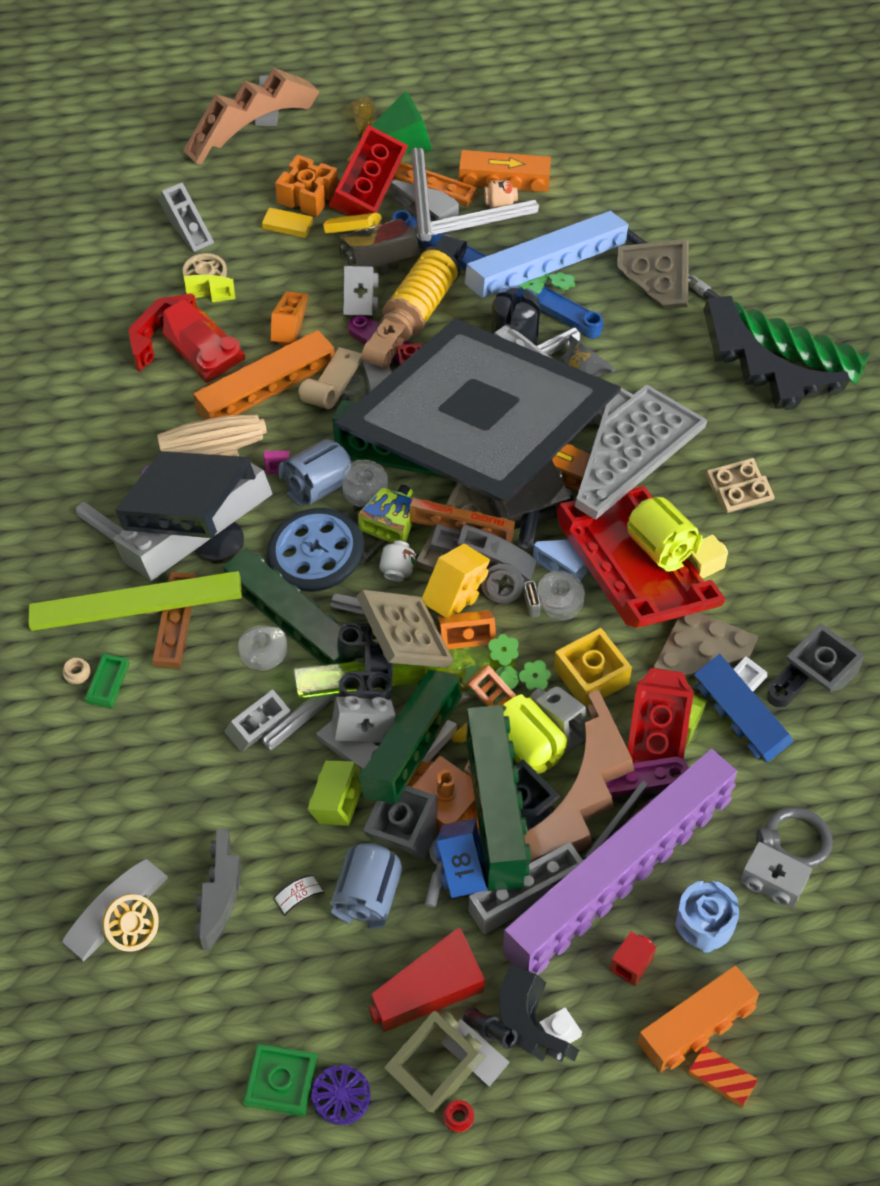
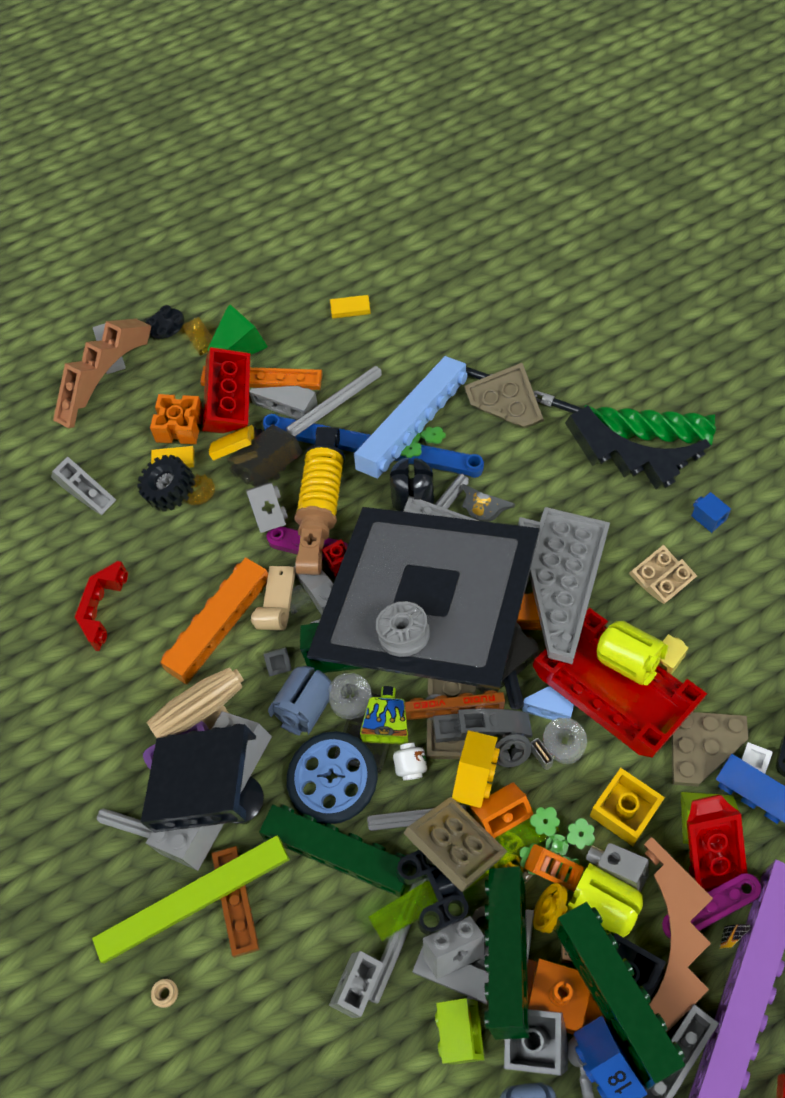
camera: 15 degrees left, 5 degrees up
(107, 681) = (197, 991): green tile -> none
(200, 340) = (143, 603): red slope -> none
(205, 268) = (119, 531): tan wheel -> none
(217, 287) = (135, 544): neon yellow slope -> none
(262, 647) = (315, 903): clear piece -> none
(270, 240) = (163, 472): none -> black bush
(273, 459) = (261, 700): dark pink tile -> none
(288, 317) = (212, 551): orange slope -> none
(298, 264) = (206, 492): none -> clear yellow gear
(308, 434) = (277, 661): none -> dark grey slope
(336, 93) = (165, 322): none -> black dish
(421, 194) = (281, 396): light grey axle -> none
(437, 424) = (403, 629): none -> light grey wheel
(500, 193) = (345, 371): light nougat head -> none
(523, 171) = (339, 347): orange brick -> none
(536, 137) = (350, 306): none -> yellow tile
(621, 818) = (719, 967): dark grey piece -> none
(820, 444) = (710, 512): none -> blue brick

